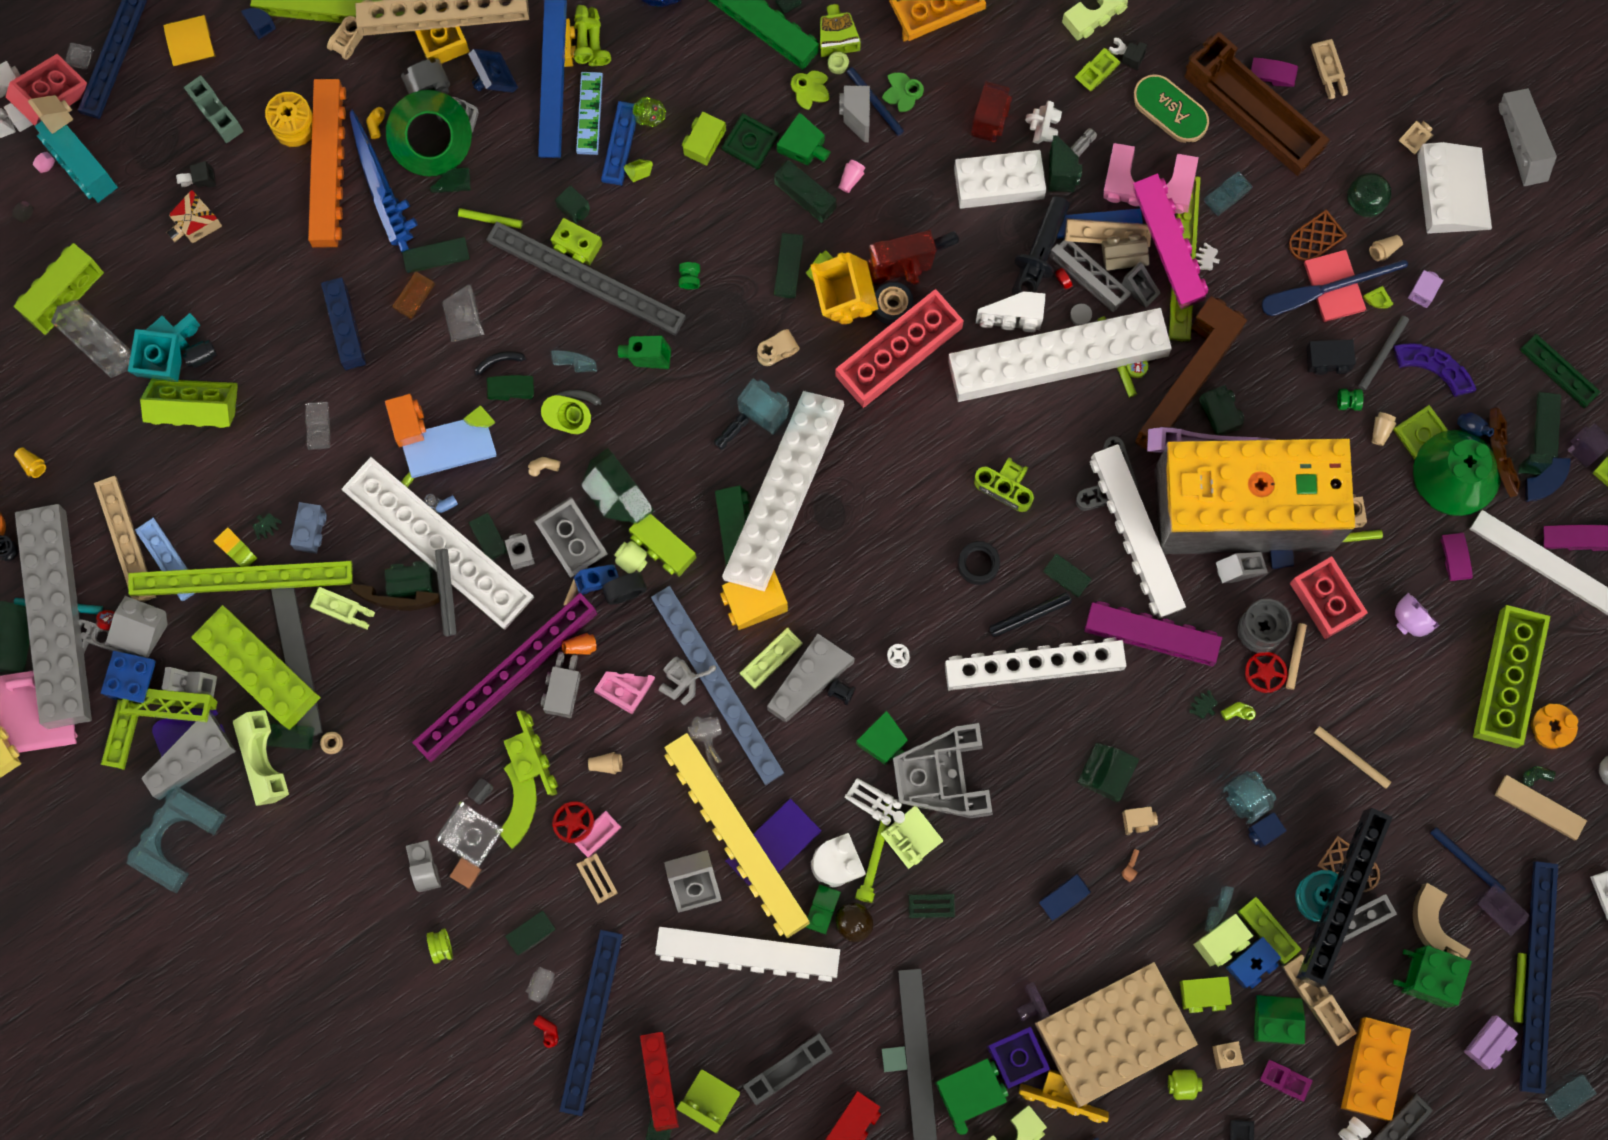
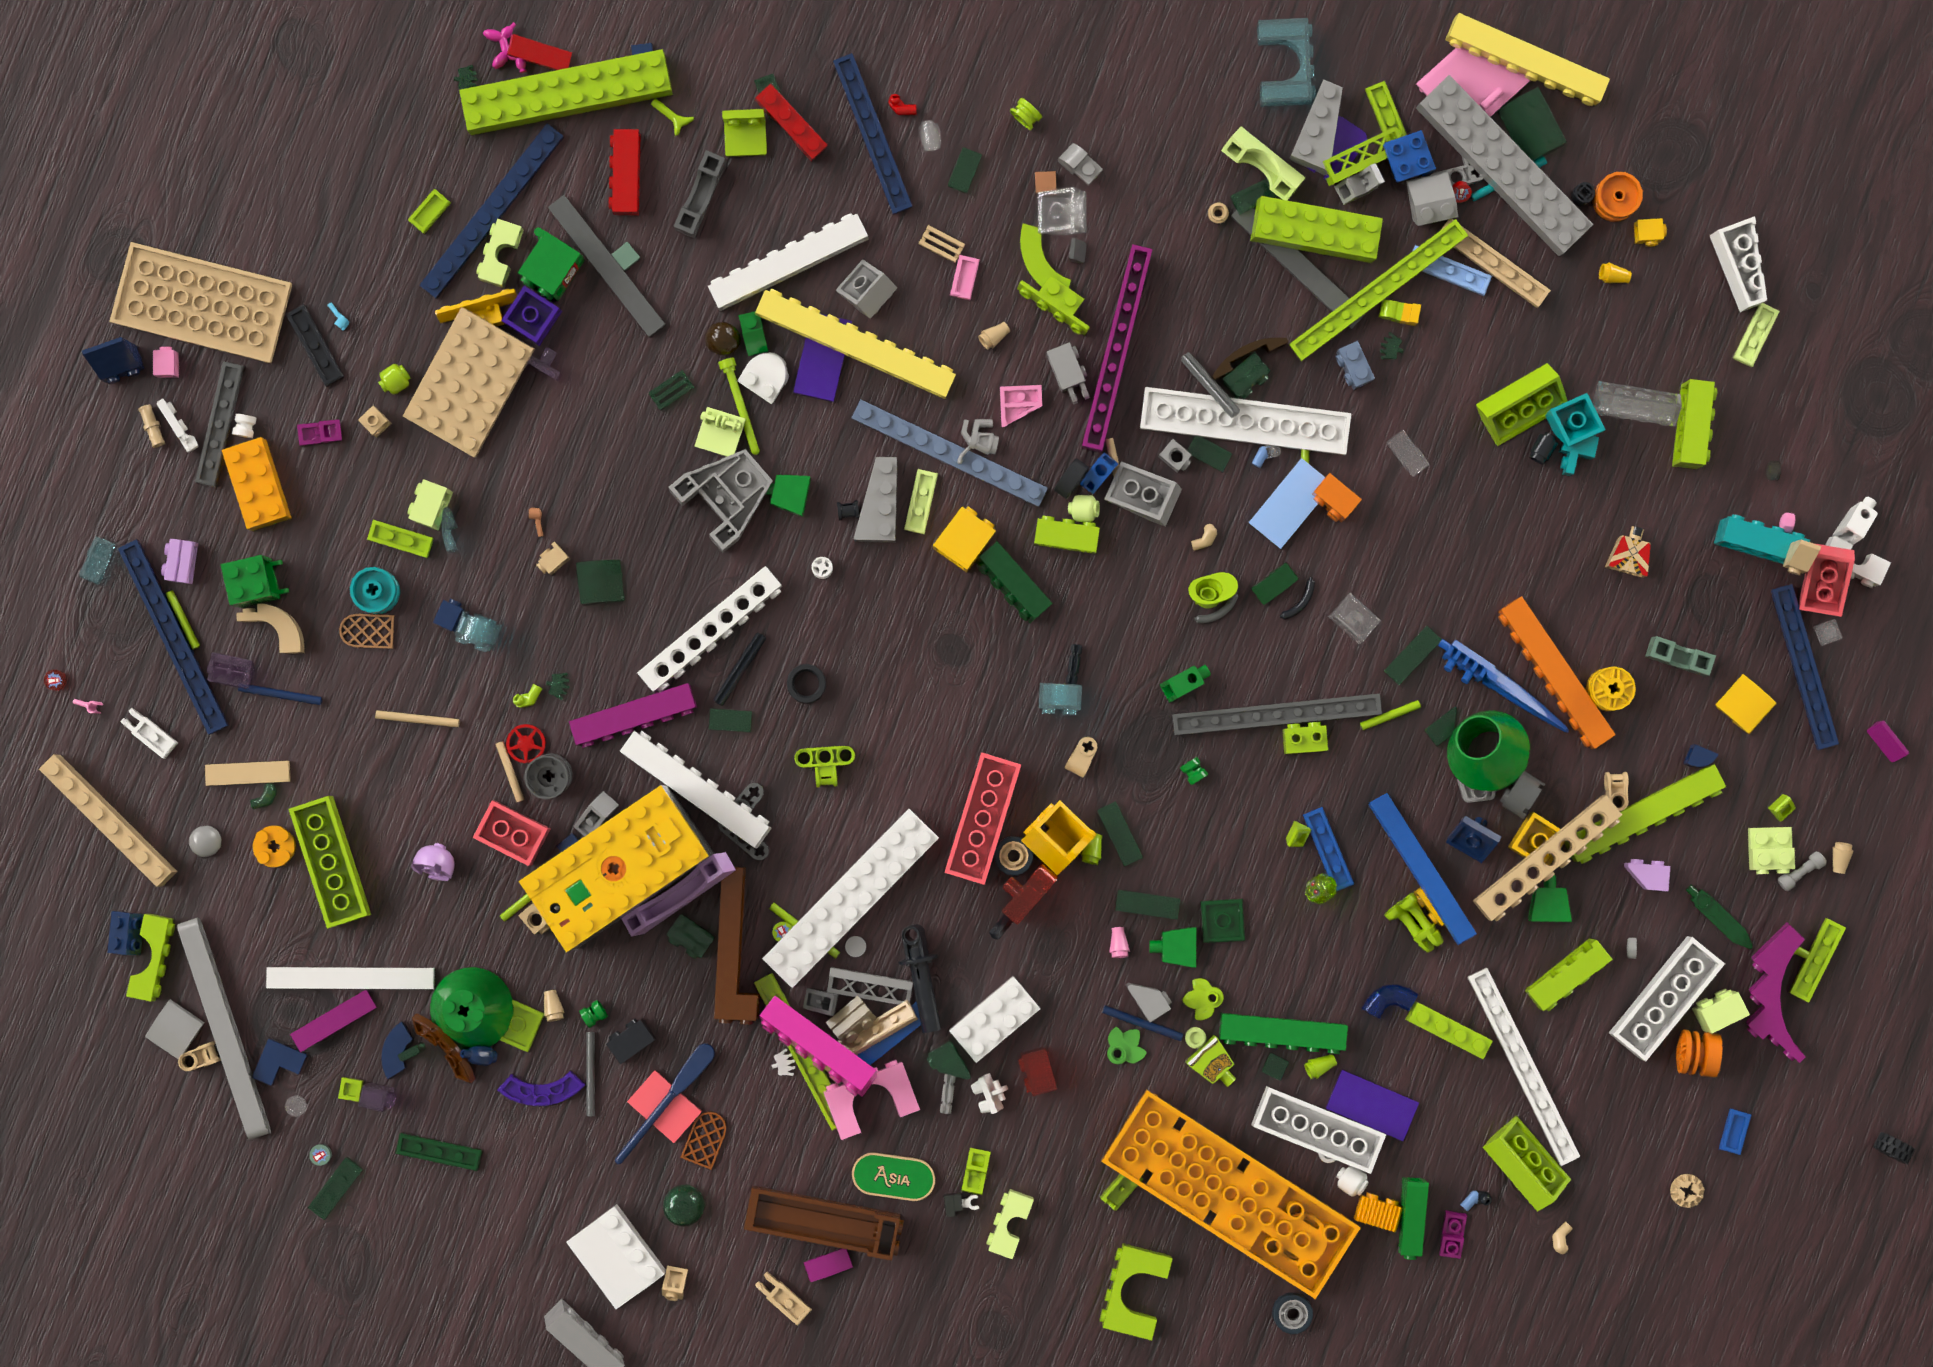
camera: 145 degrees right, 10 degrees up
(201, 175) = (1652, 593): pearl dark grey piece -> none
(339, 607) = (1286, 320): yellowish green hinge -> none
(343, 323) = (1445, 548): dark blue brick -> none
(374, 120) = (1543, 735): yellow arm -> none
(413, 295) = (1406, 609): clear orange plate -> none
(479, 418) = (1281, 541): lime tile -> none
(573, 204) = (1329, 769): clear green brick -> none
(573, 822) = (989, 274): red wheel -> none
(580, 644) = (1075, 414): orange cone -> none
(581, 362) = (1233, 640): clear light blue slope -> none
(589, 113) = (1371, 858): tile -> none
(614, 490) = (1133, 552): clear green wedge -> none
(704, 138) = (1260, 895): lime brick -> none
(704, 731) = (933, 410): clear plant -> none
(783, 491) = (997, 637): white plate -> none
(898, 816) = (740, 439): white piece -> none
(1018, 311) = (905, 912): white slope -> none
(1063, 278) = (888, 966): red tile -> none
(1065, 897) = (572, 462): dark blue slope -> none
(1205, 993) = (420, 457): lime brick -> none
(1228, 193) = (800, 1131): clear light blue slope -> none
(1260, 951) = (396, 516): blue brick -> none
(1279, 1020) = (351, 474): green slope -> none
(1320, 1003) = (330, 510): tan slope -> none
(1344, 897) = (355, 592): black brick -> none
(1370, 916) = (335, 589): light grey brick -> none
(1378, 298) = (622, 1119): lime tile -> none
(1384, 248) = (643, 1164): tan cone -> none
(1425, 288) = (588, 1151): lavender brick -> none
(1457, 556) = (430, 936): magenta slope -> none
(1547, 424) = (422, 1096): clear green tile -> none

